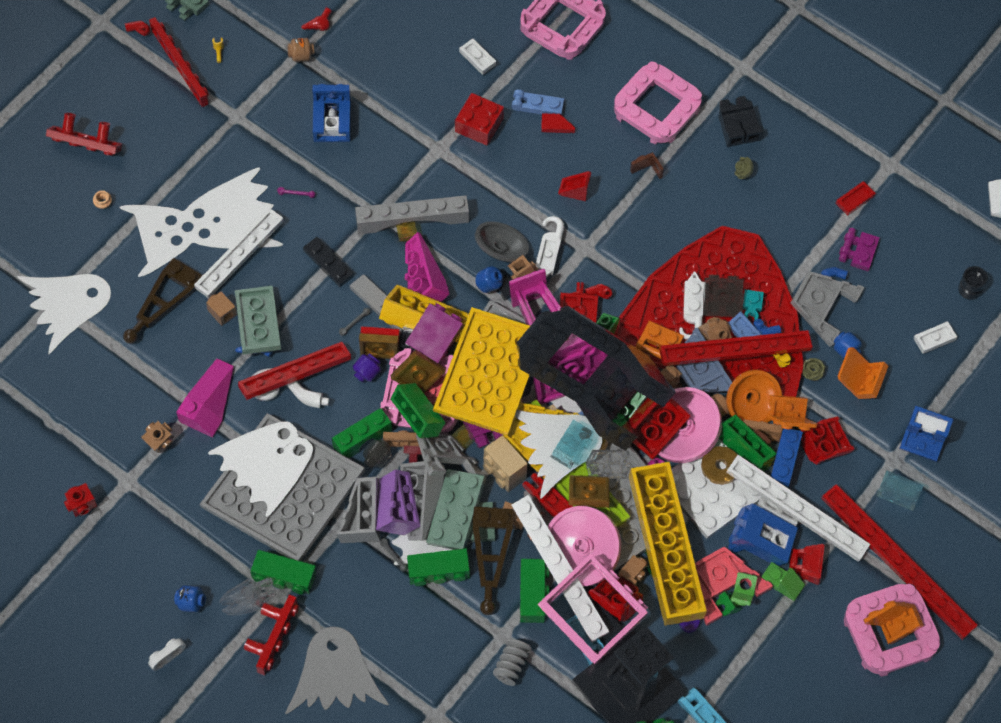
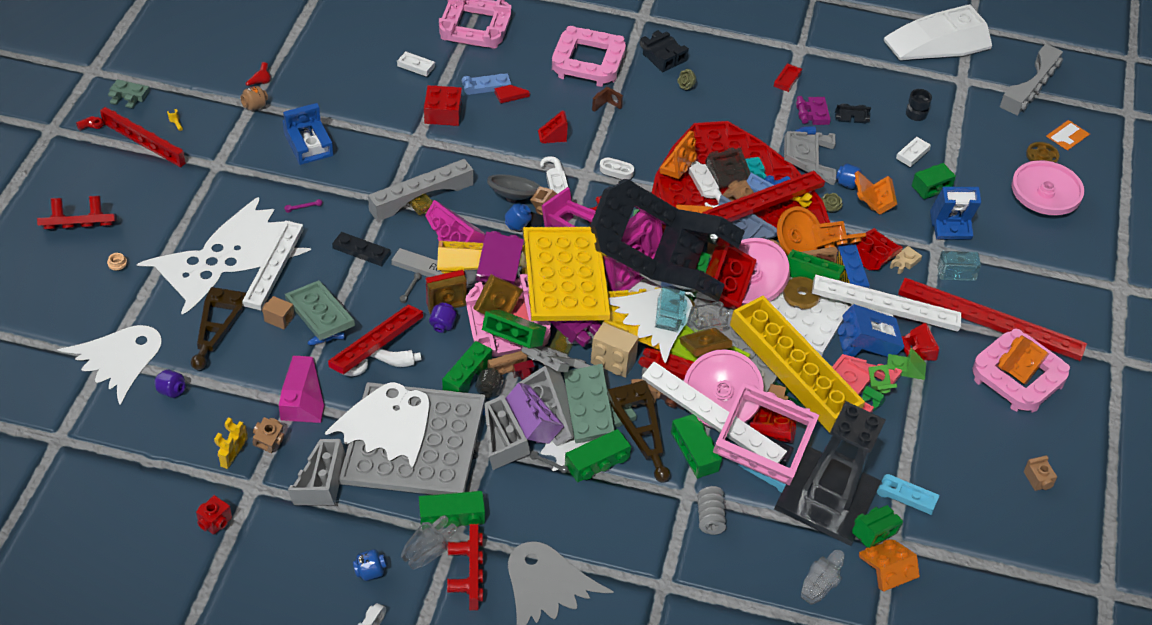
camera: 25 degrees left, 15 degrees down
(96, 350) = (170, 383): none -> dark purple head
(129, 431) = (230, 448): none -> yellow plate
(183, 497) = (320, 478): none -> light grey wedge
(618, 253) = (616, 168): none -> white plate
(678, 269) = (681, 157): none -> orange bracket
(854, 461) = (906, 258): none -> tan plate
(904, 270) = (845, 111): none -> black hinge
(932, 381) = (932, 180): none -> green brick

